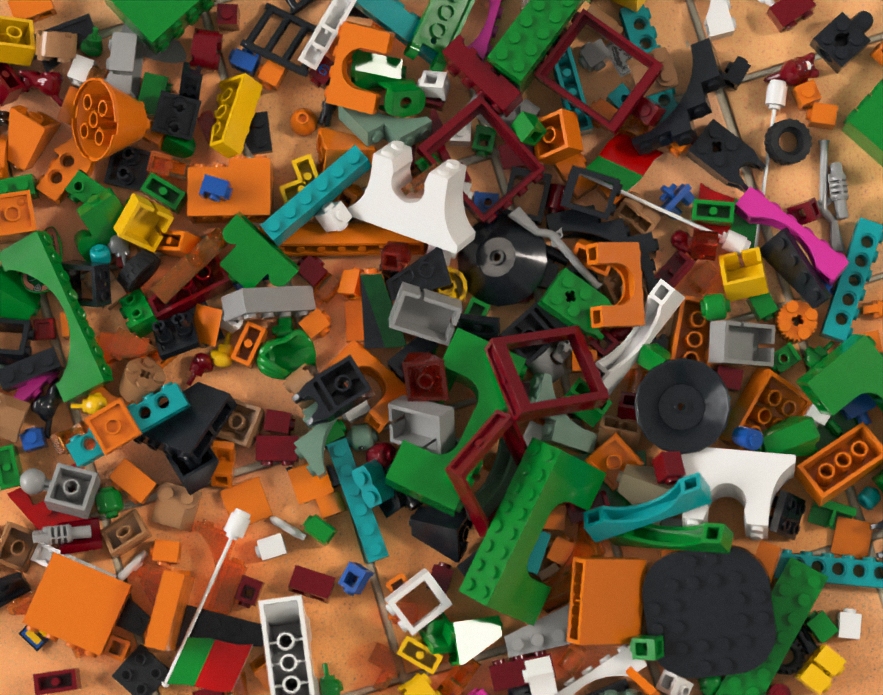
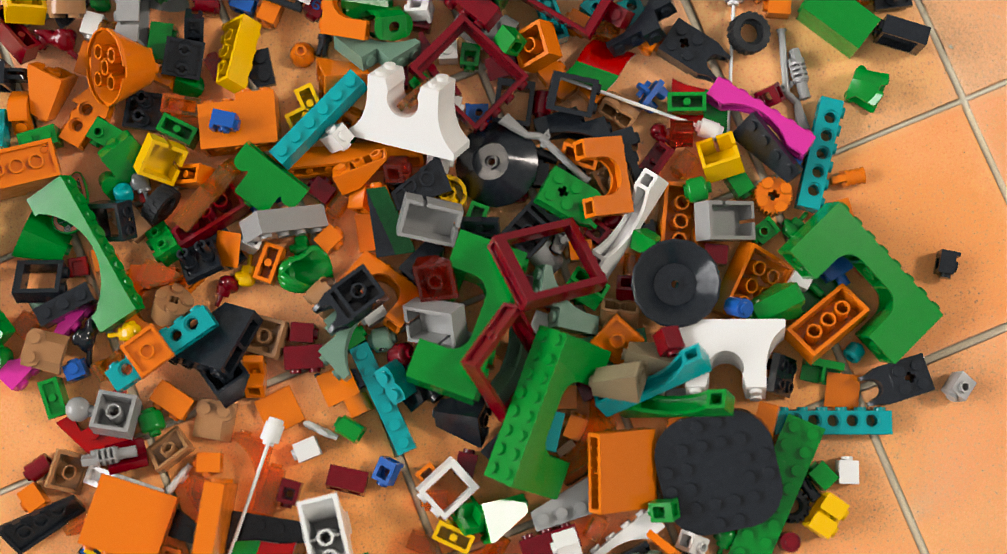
camera: 10 degrees left, 0 degrees up
(351, 255) = (355, 173): none -> orange slope
(613, 505) = (620, 381): none -> dark tan slope

